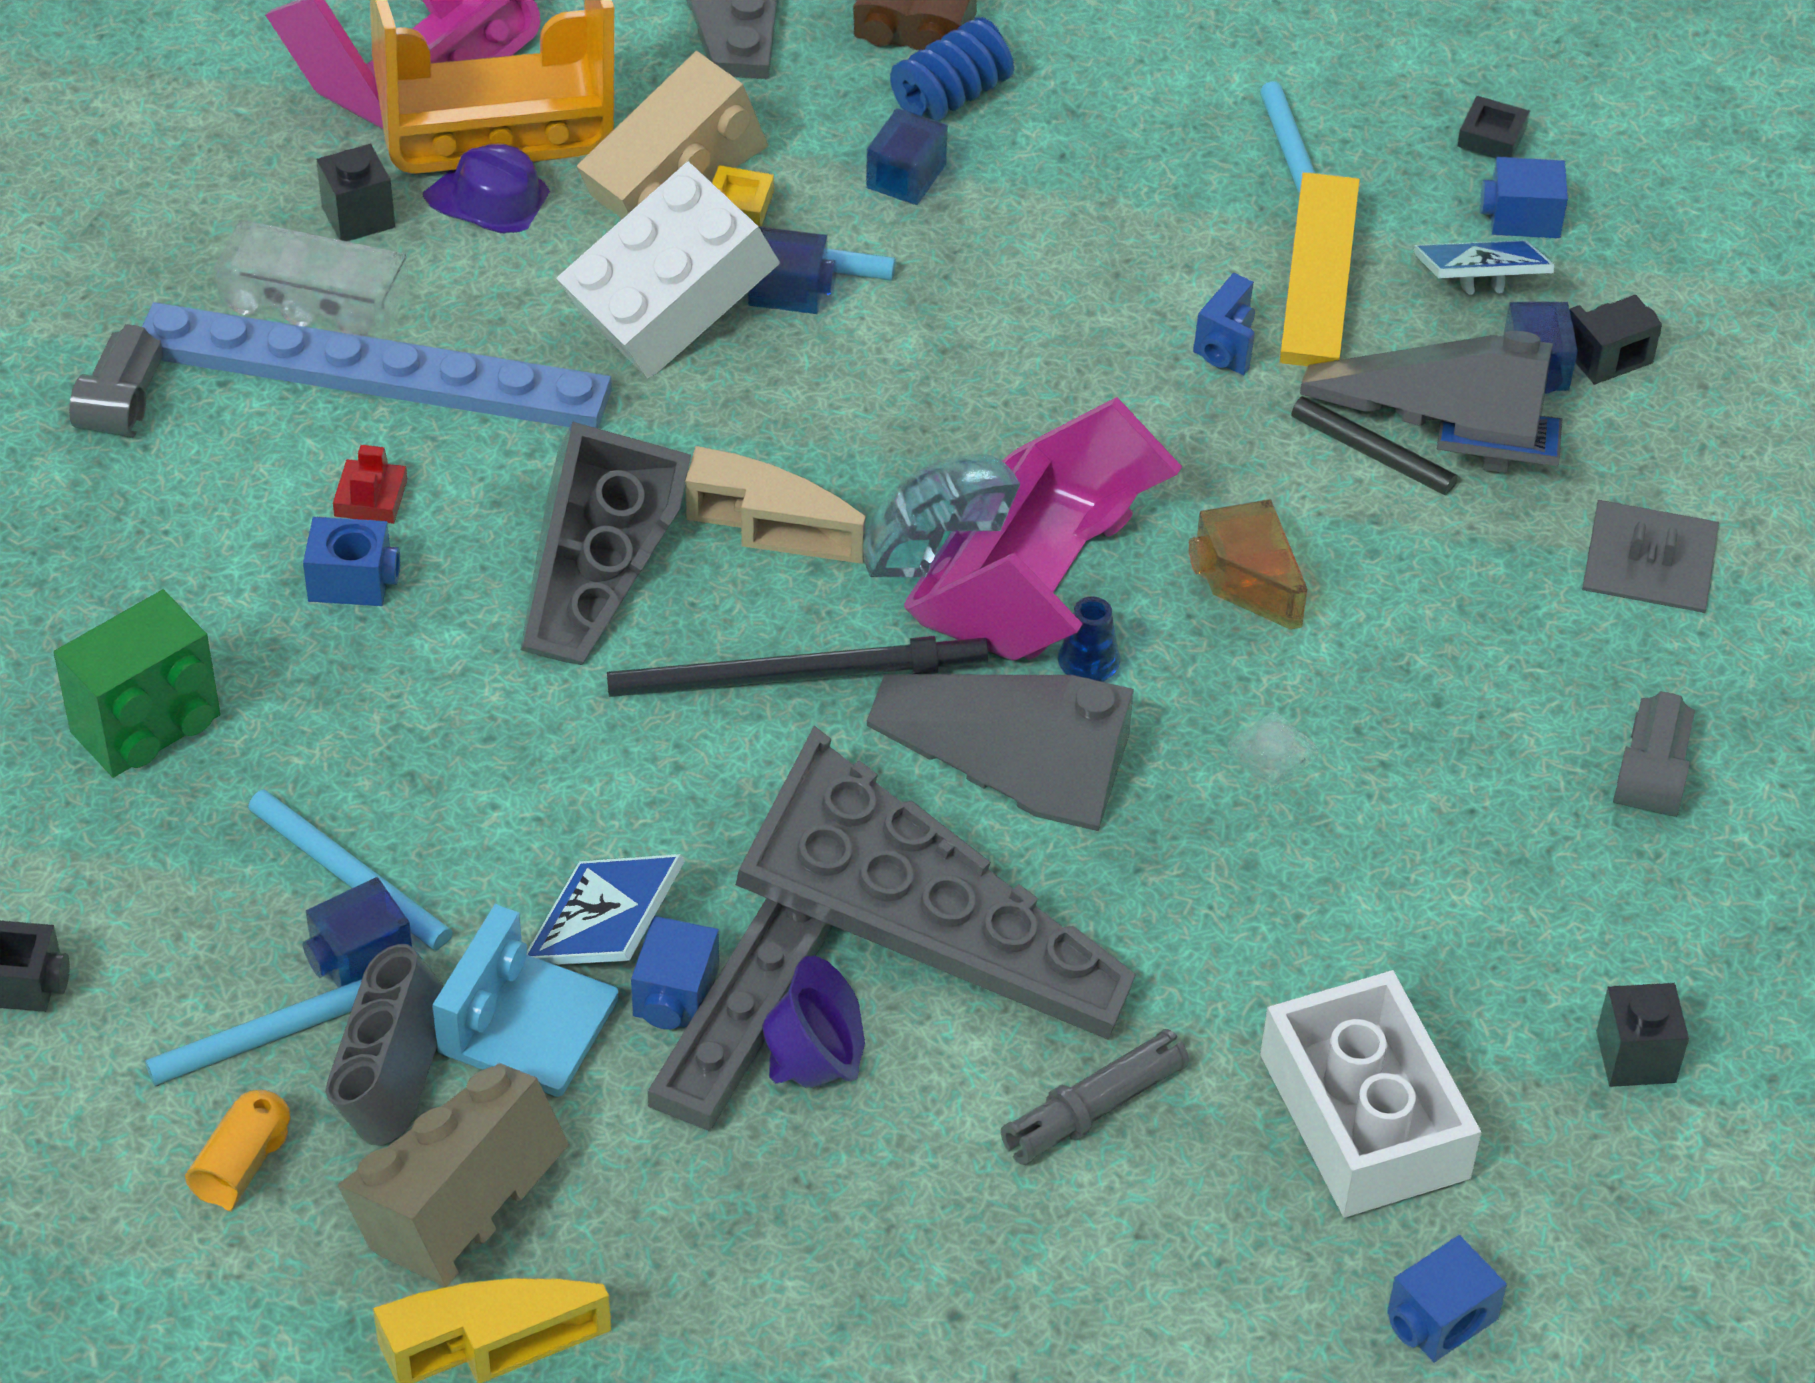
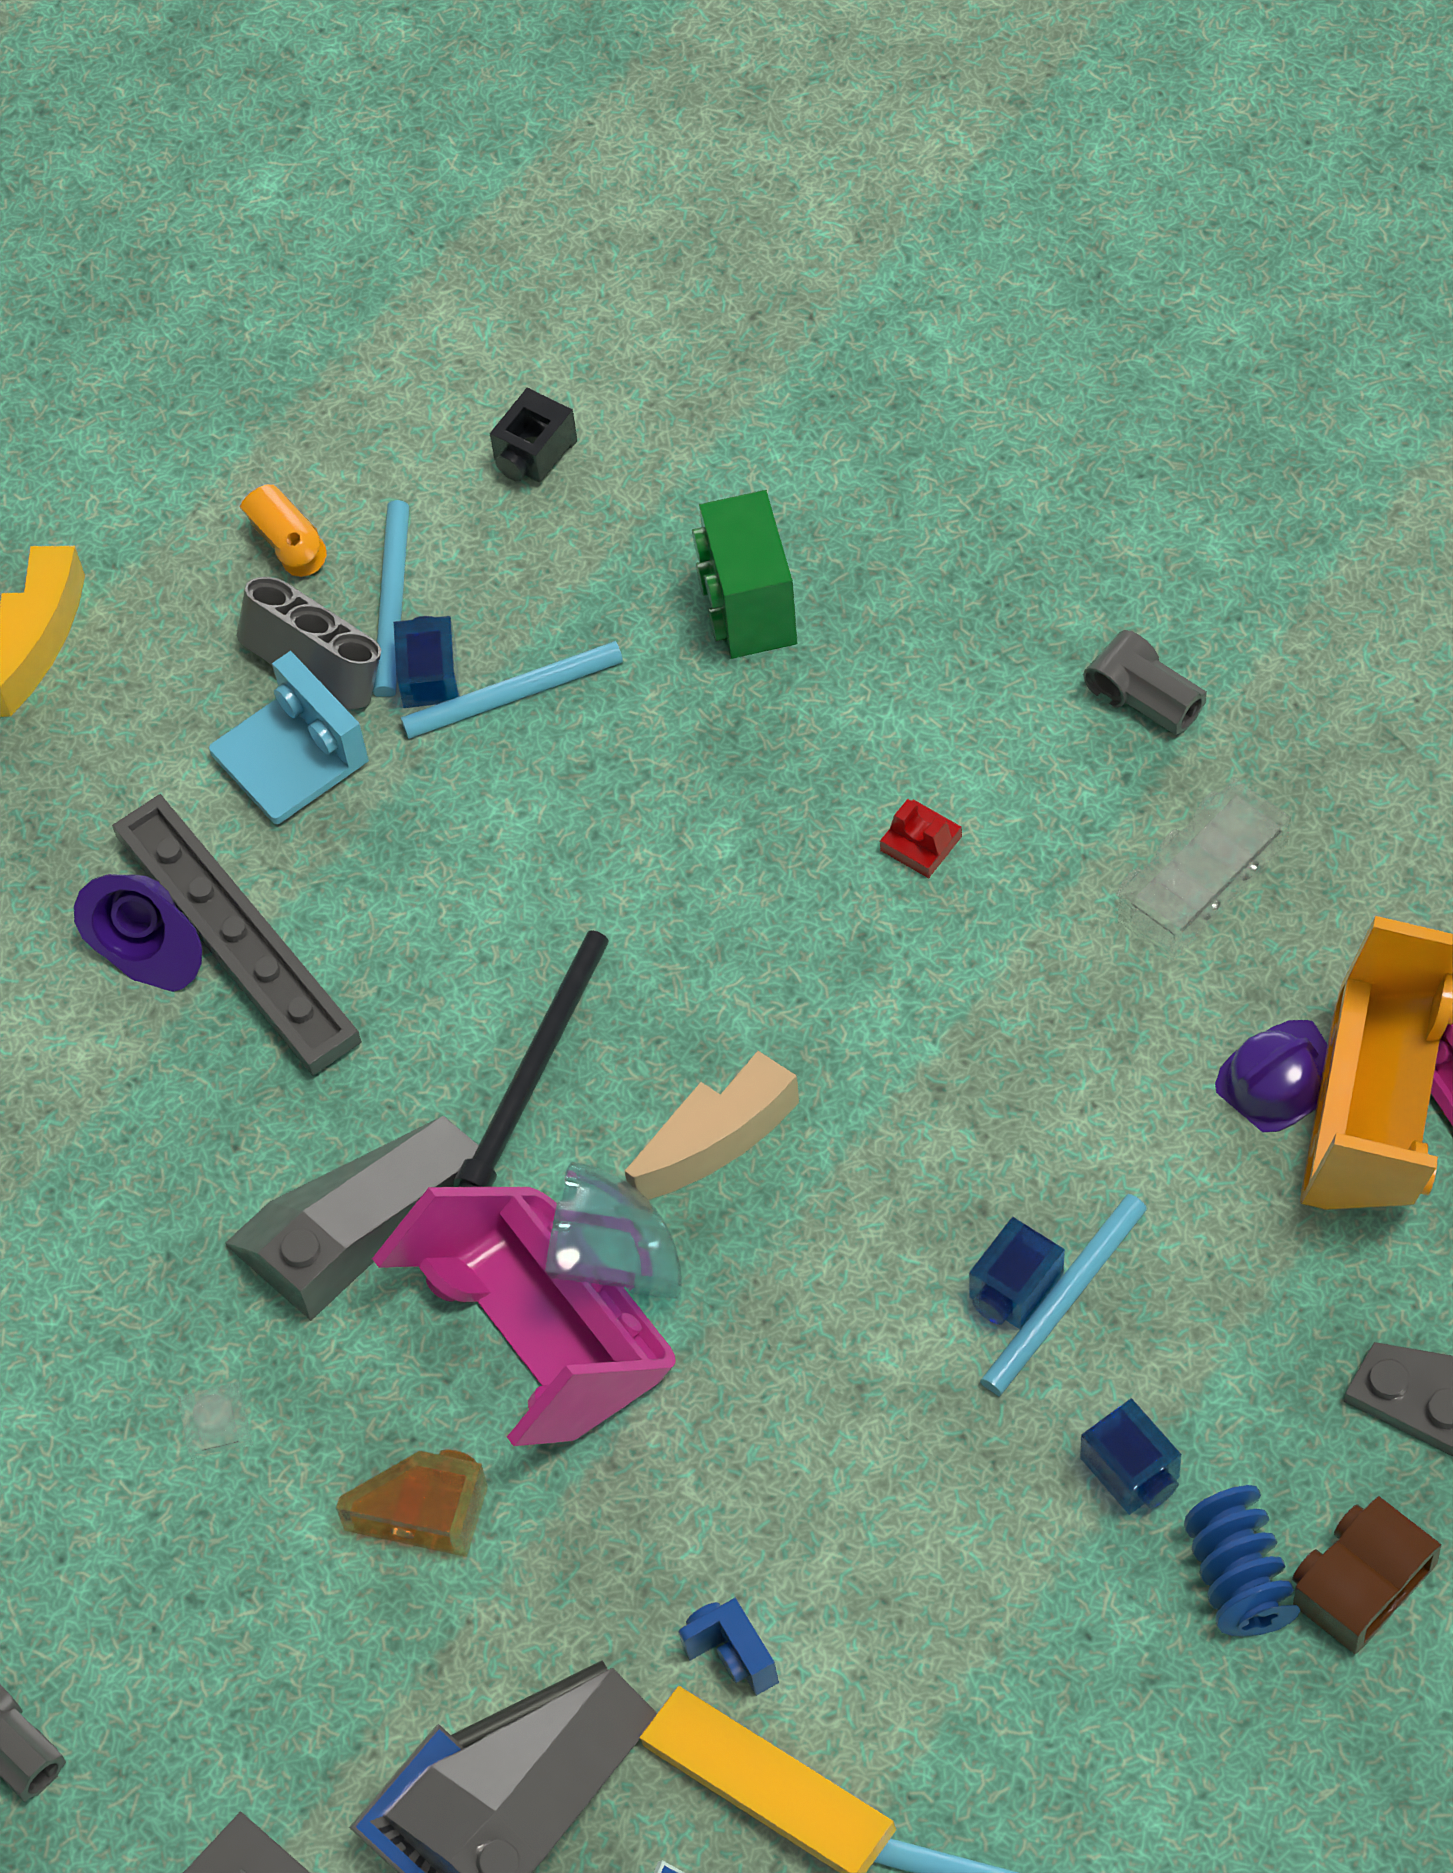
camera: 125 degrees right, 10 degrees up
(349, 561) = (834, 763): blue brick -> none
(356, 193) = (1304, 938): black brick -> none
(378, 366) = (1075, 897): medium blue plate -> none
(454, 1171) = (155, 632): dark tan wedge -> none
(597, 532) = (754, 978): dark grey wedge -> none
(605, 909) = (346, 829): piece -> none
(668, 270) = (1034, 1139): white brick -> none
(674, 972) = (258, 855): blue brick -> none
(690, 117) = (1238, 1238): tan wedge -> none
(747, 190) = (1152, 1280): yellow plate -> none
(910, 884) = (239, 1028): dark grey wing -> none
(1094, 648) = (402, 1314): clear blue cone -> none

